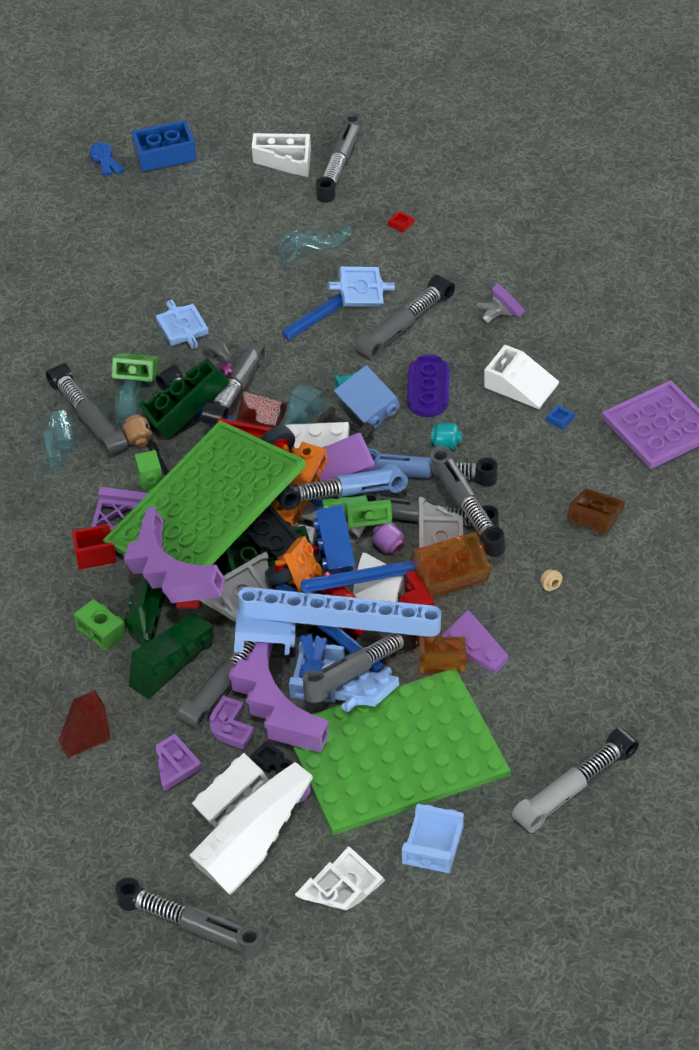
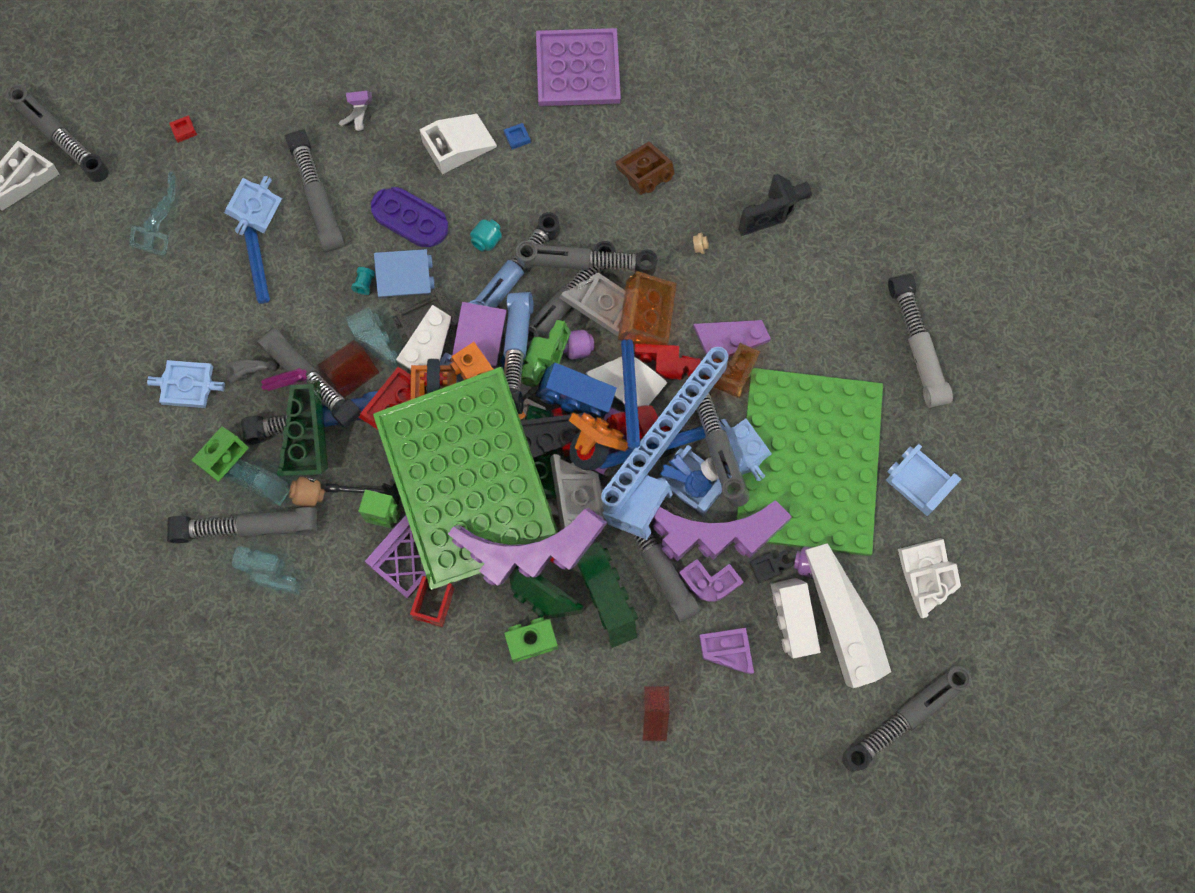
camera: 65 degrees left, 25 degrees up
(621, 612) = (777, 208): none -> black plate

